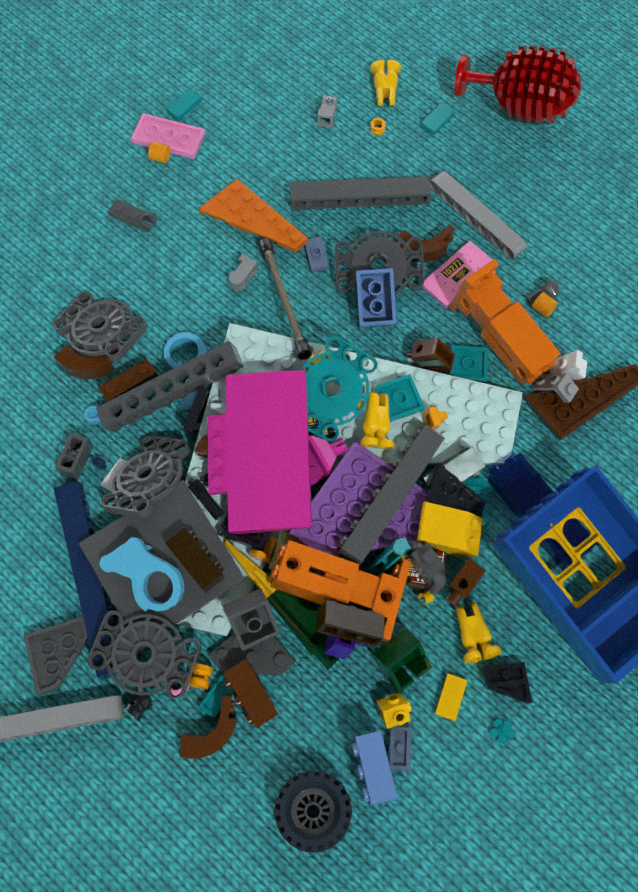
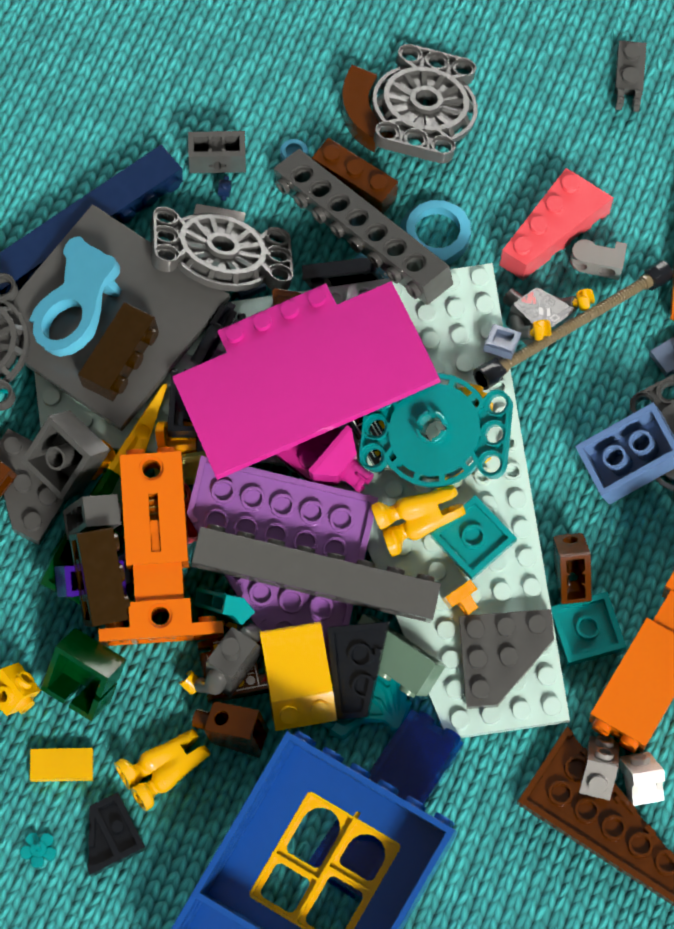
camera: 65 degrees right, 0 degrees up
(208, 284) = (559, 217): none -> coral wedge
(268, 313) = (541, 312): none -> torso
(285, 334) = (502, 341): none -> sand blue tile
(304, 615) = (92, 514): none -> dark grey brick
(472, 412) = (500, 652): none -> dark grey plate

